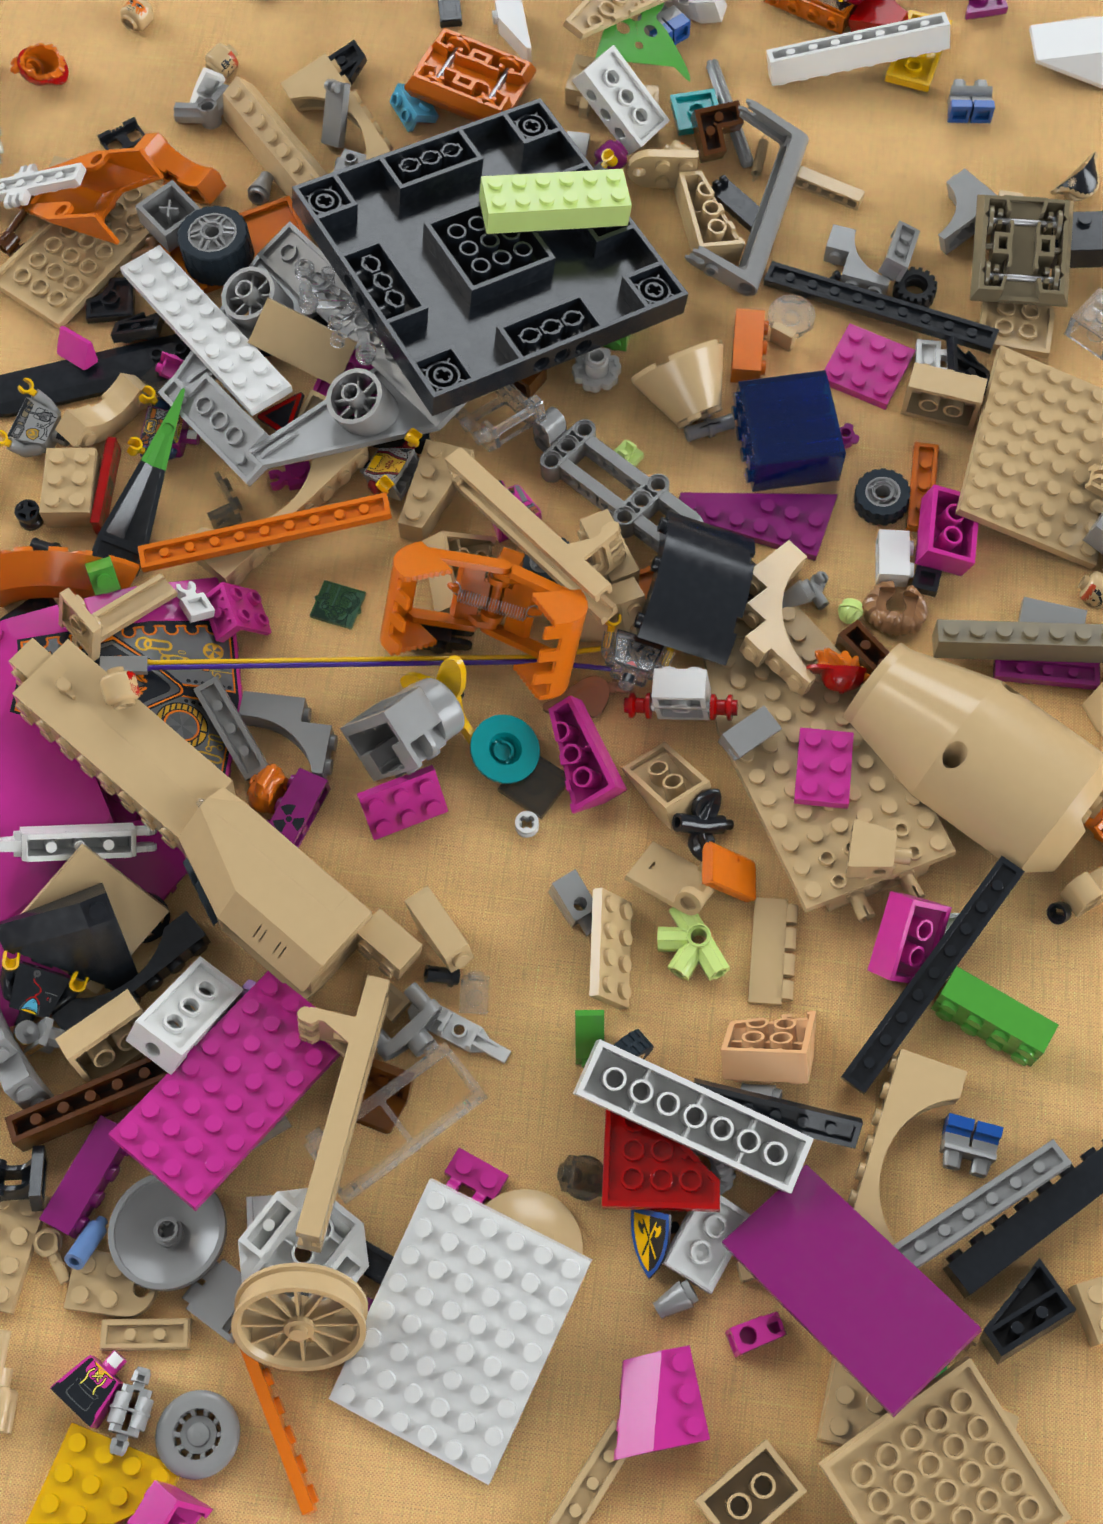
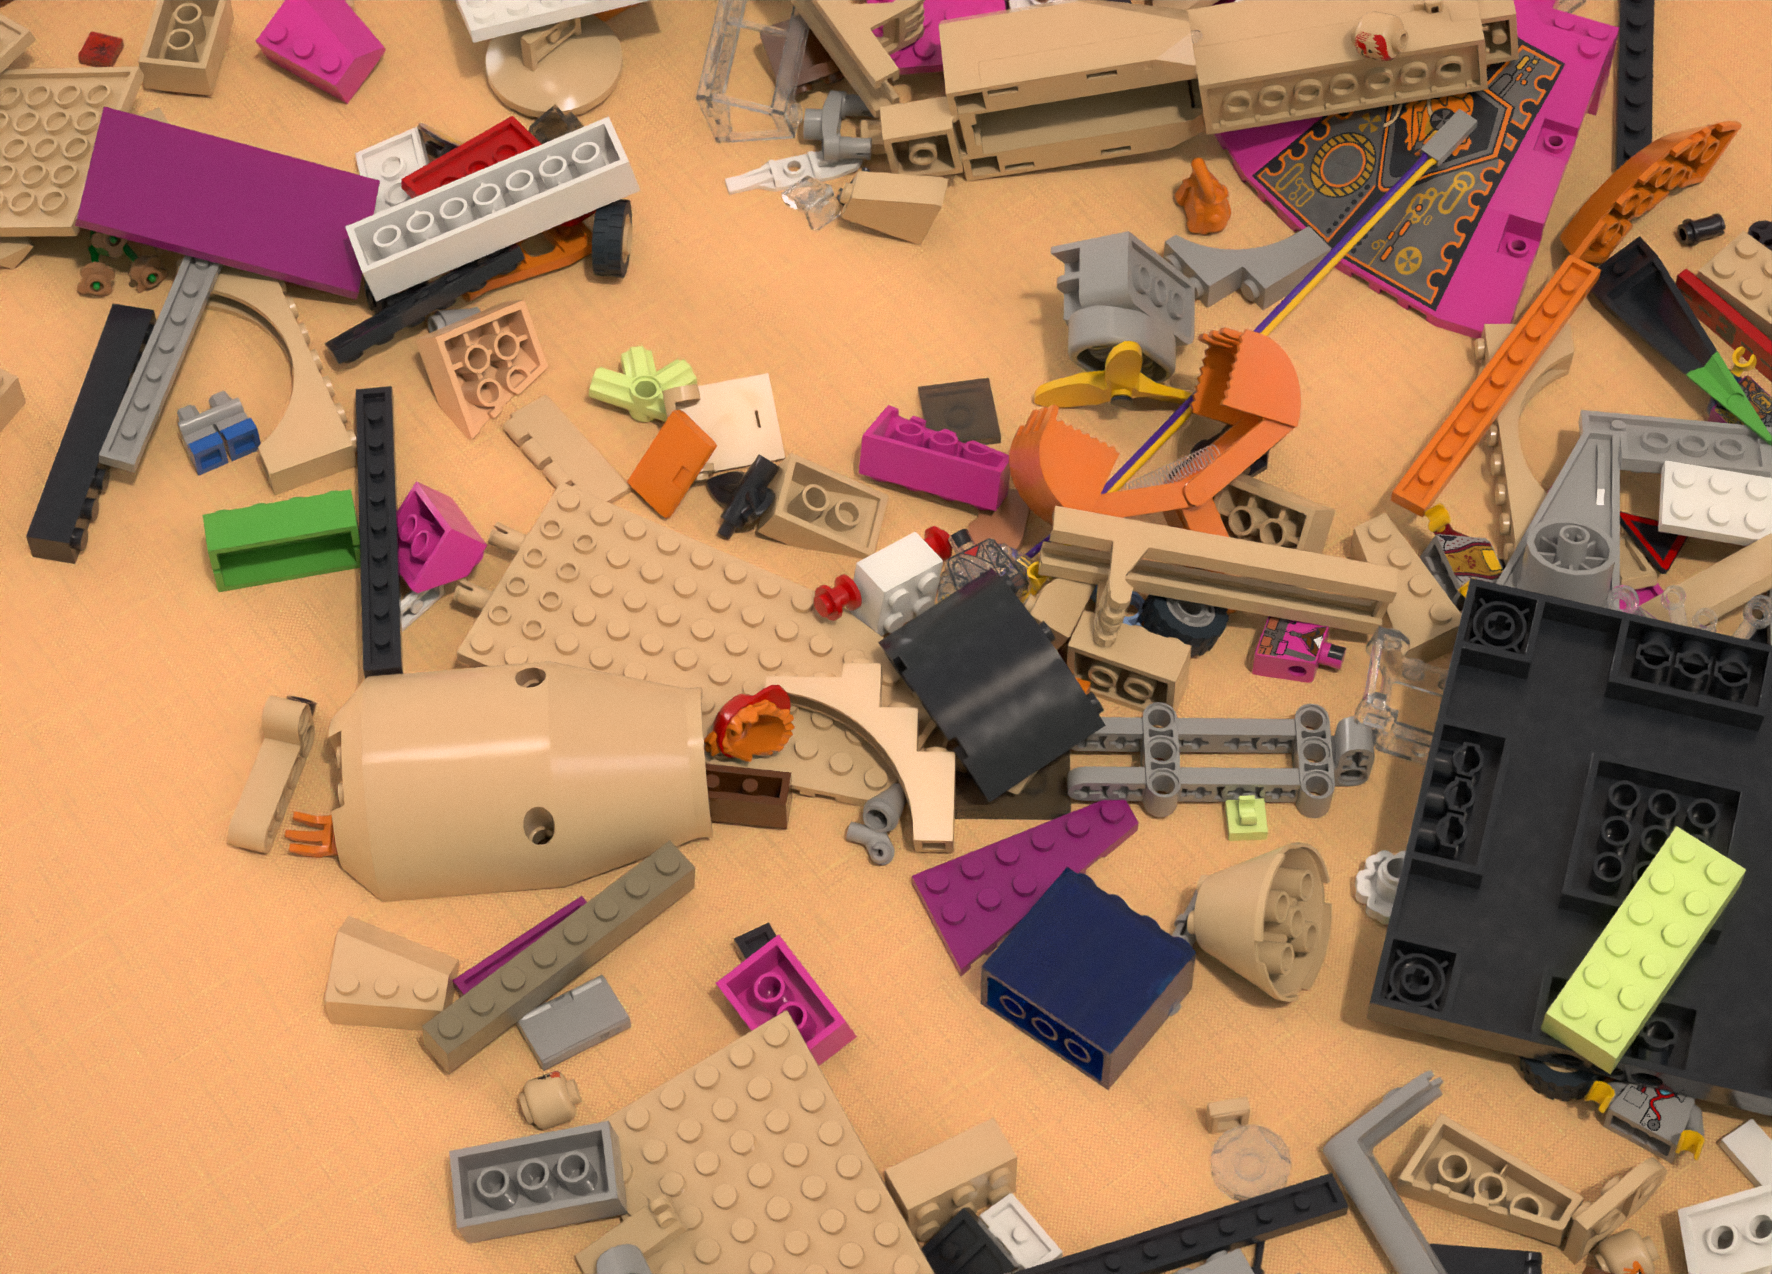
camera: 135 degrees right, 10 degrees down
(92, 629) = (1512, 100): tan bracket -> none
(102, 576) = (1581, 197): bright green brick -> none
(194, 605) = (1471, 267): white plate -> none
(228, 514) = (1571, 394): clear smoke bracket -> none
(231, 727) = (1298, 209): light grey plate -> none
(236, 610) = (1432, 315): dark pink bracket -> none
(299, 805) = (1149, 196): magenta brick -> none
(337, 604) = (1357, 419): clear green piece -> none
(402, 802) = (1045, 298): dark pink plate -> none
(476, 1175) = (654, 82): dark pink plate -> none
(504, 749) = (1010, 394): teal hat -> none
(527, 816) = (921, 364): white bush -> none
(569, 892) = (800, 330): light grey torso -> none
(588, 1029) = (661, 231): bright green slope -> none
(610, 949) = (719, 314): tan plate -> none
(619, 152) = (1705, 1179): magenta head -> none
(676, 1299) = (381, 124): light grey cone -> none
(748, 345) = (1254, 1065): orange brick -> none
(749, 733) = (781, 592): light grey hinge -> none
(755, 1333) = (291, 144): dark pink leg -> none
(823, 768) = (671, 624): dark pink plate -> none
(850, 610) = (812, 843): yellowish green plate -> none
(851, 437) = (1025, 1064): magenta plate -> none
(868, 366) = (1091, 1175): dark pink plate -> none
(874, 851) = (538, 565): tan torso -> none
(886, 484) = (899, 1027): black wheel -> none
(891, 621) = (751, 869): medium nougat piece -> none
(893, 557) = (822, 941): white brick -> none
(921, 480) = (882, 1080): orange tile -> none
(1027, 1315) = (45, 333): black wedge -> none

